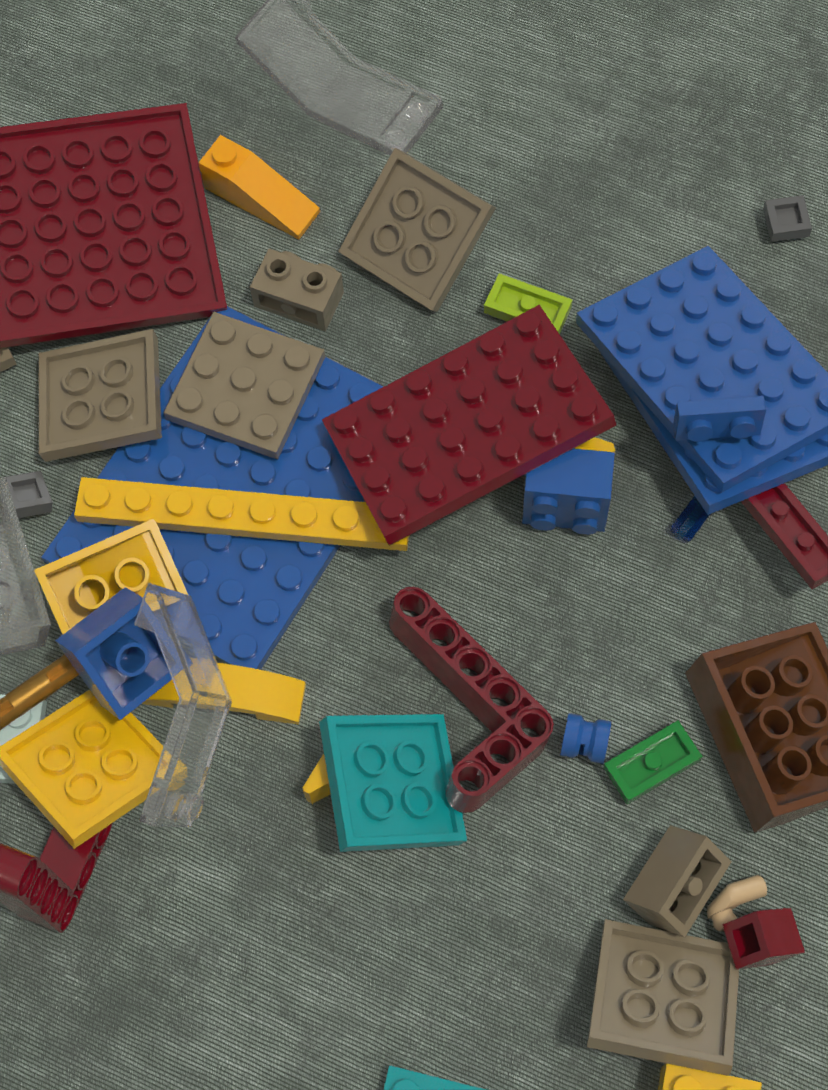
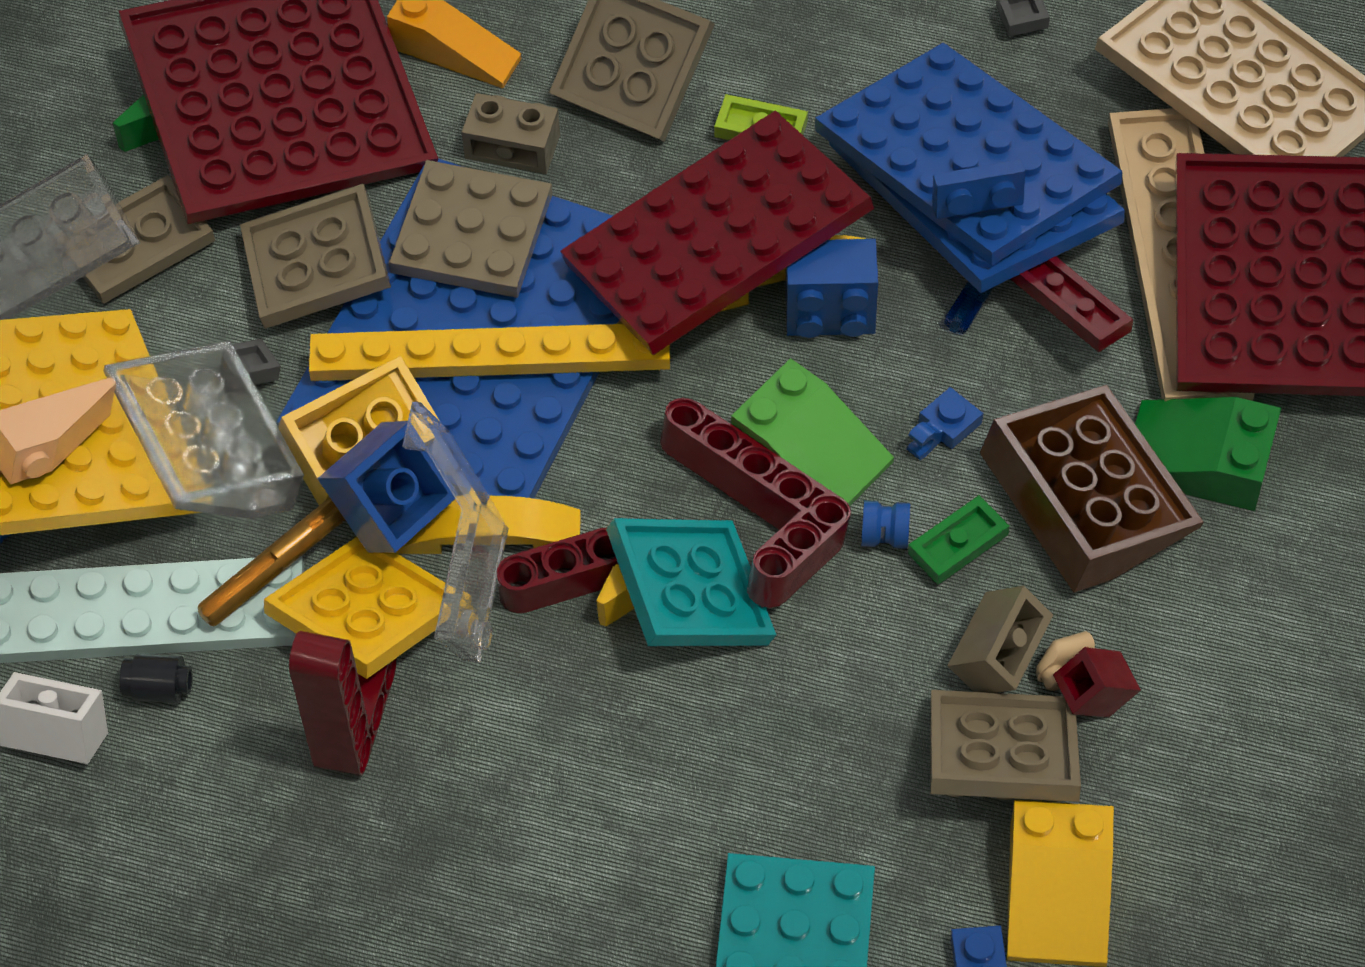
camera: 10 degrees left, 10 degrees down
(257, 740) = (549, 587): none -> dark red beam
(530, 636) = (813, 431): none -> bright green slope
(656, 633) = (944, 420): none -> blue plate

